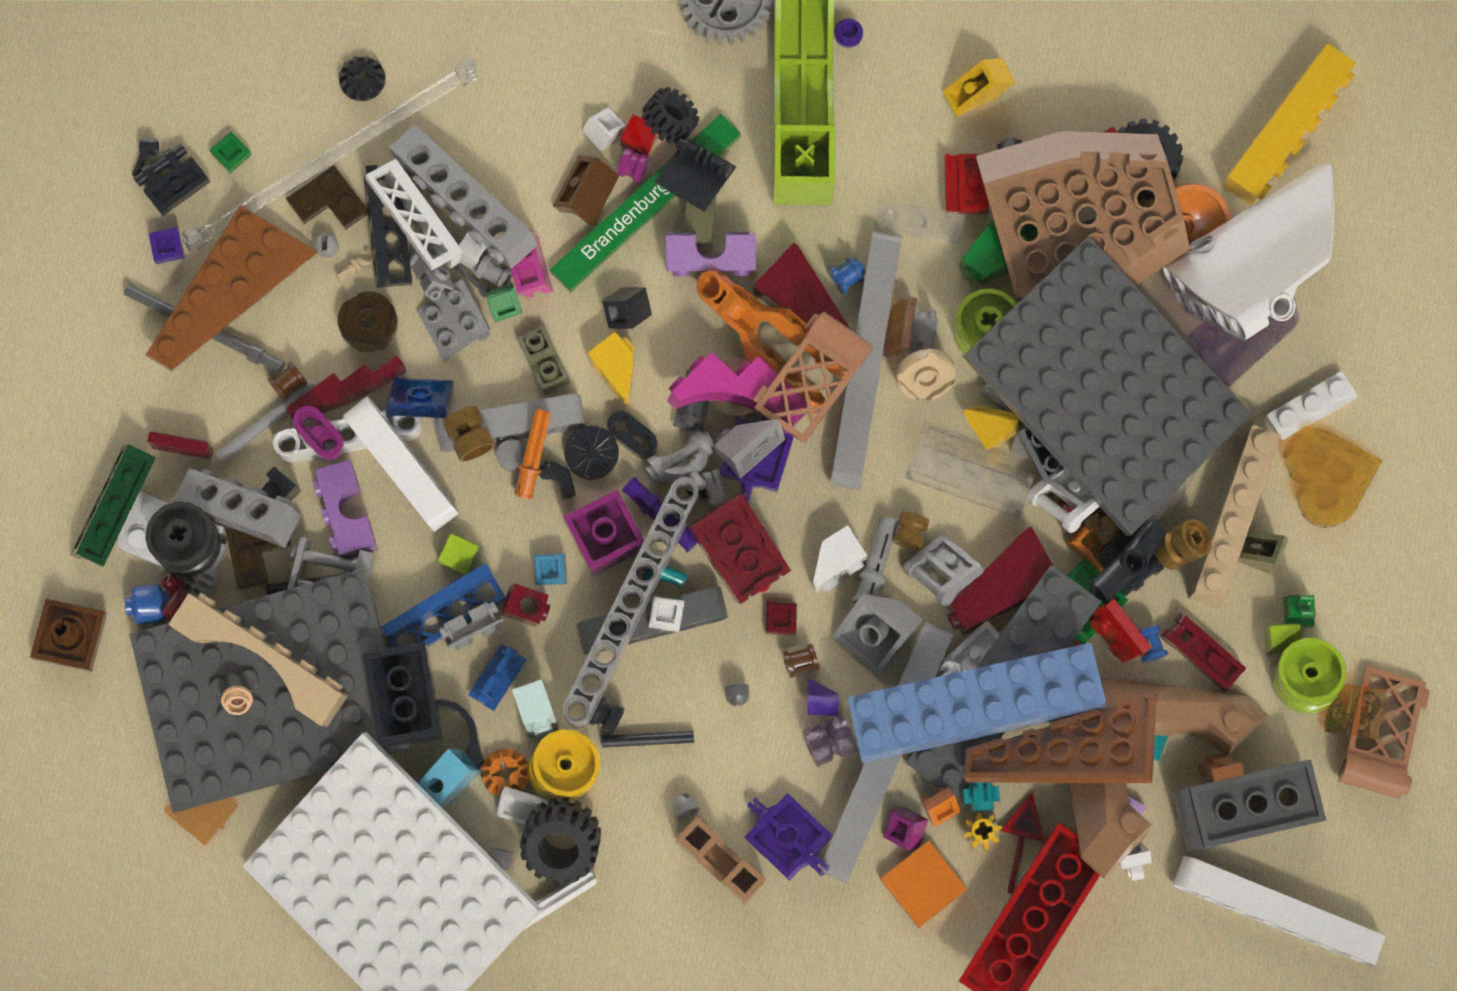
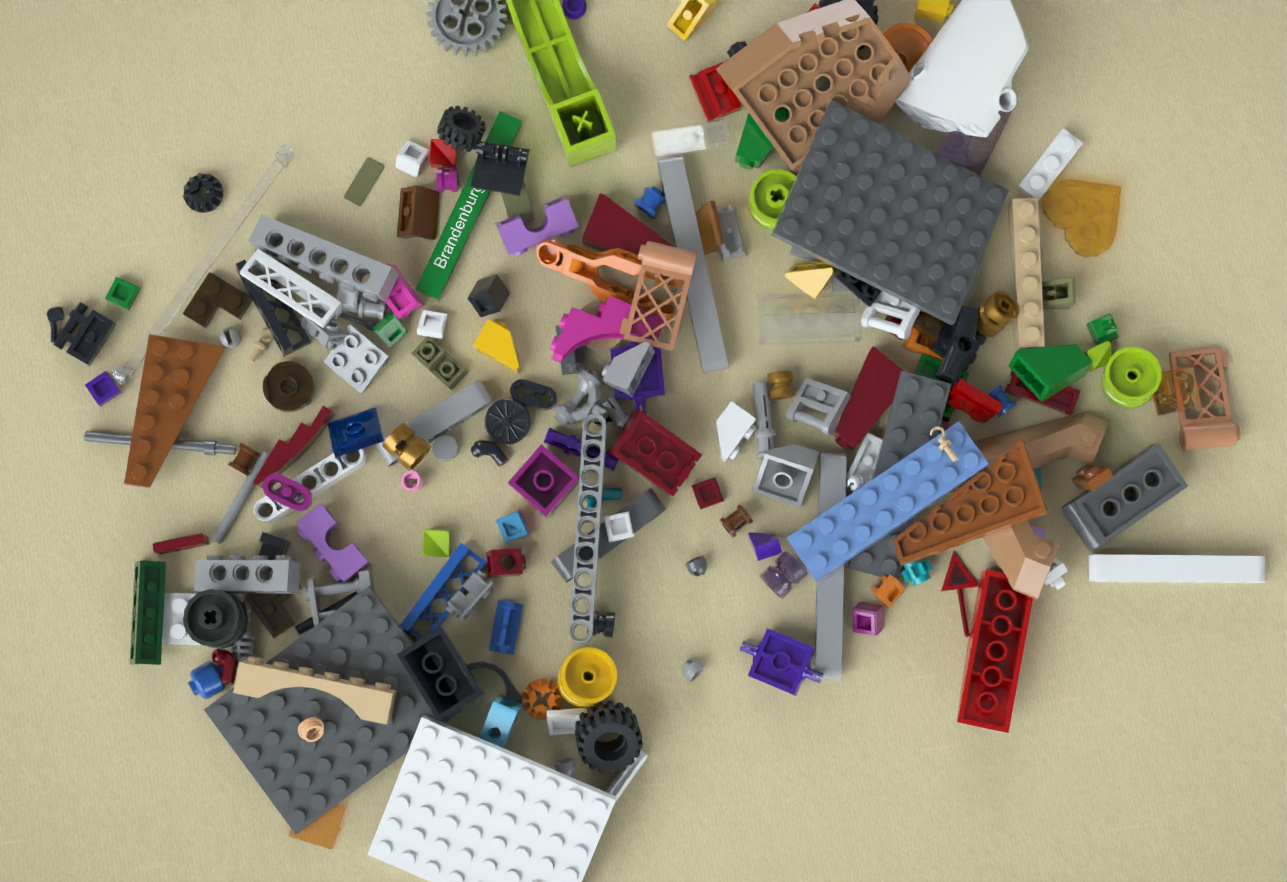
camera: 20 degrees left, 5 degrees up
(68, 635) = (155, 728): reddish brown plate -> none
(401, 464) = (362, 490): white beam -> none
(462, 470) = (412, 475): none -> bright pink hinge
(529, 469) = (464, 453): orange axle -> none
(535, 709) = (548, 643): light aqua arch -> none
(541, 133) = (363, 181): none -> olive sticker
(552, 314) = (432, 324): none -> white tile
(644, 739) = (642, 628): black bar -> none
(720, 860) = (738, 701): medium nougat arch -> none
(923, 884) = (899, 656): orange tile -> none
(926, 374) = (744, 257): tan tile -> none
(986, 824) = (935, 600): yellow gear -> none
(1065, 661) = (945, 444): none -> tan hand
(1221, 629) = (1050, 368): none -> green slope

